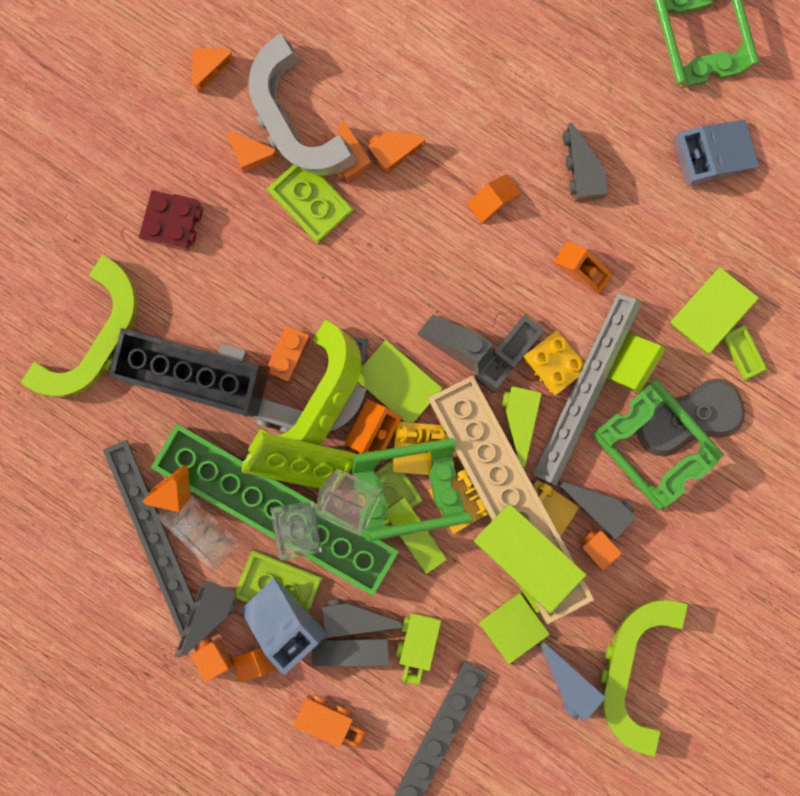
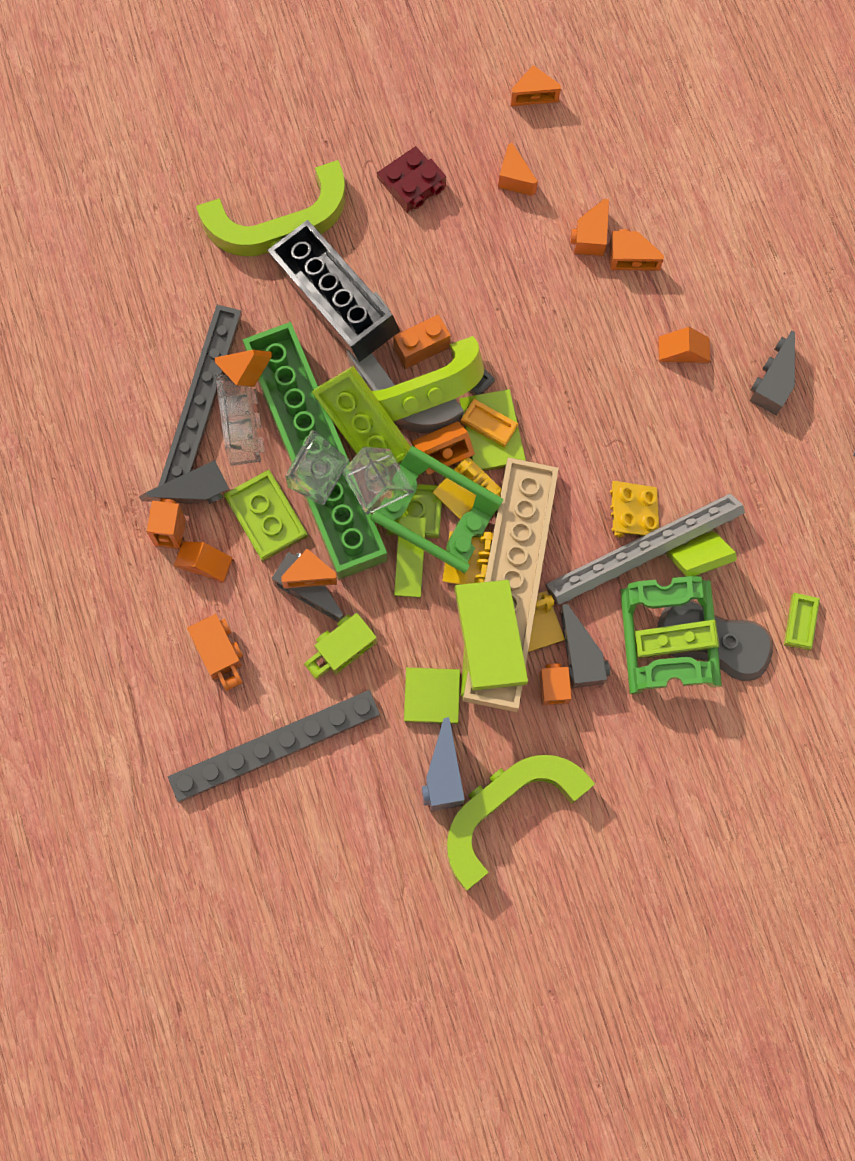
camera: 30 degrees right, 10 degrees down
(264, 77) = (577, 123): light grey arch -> none
(282, 626) = (244, 542): sand blue slope -> none
(310, 202) = (534, 243): lime tile -> none
(351, 613) = (308, 572): none -> orange slope
(351, 652) = (283, 609): dark grey slope -> none
(392, 380) = (489, 423): none -> light orange tile
(458, 343) = (567, 433): dark grey slope -> none
(509, 353) = (600, 473): dark grey slope -> none
(521, 417) = (575, 527): lime slope -> none
(583, 267) = (717, 452): orange slope -> none
(664, 443) = (677, 639): none -> lime tile
(714, 311) = (801, 567): lime tile -> none

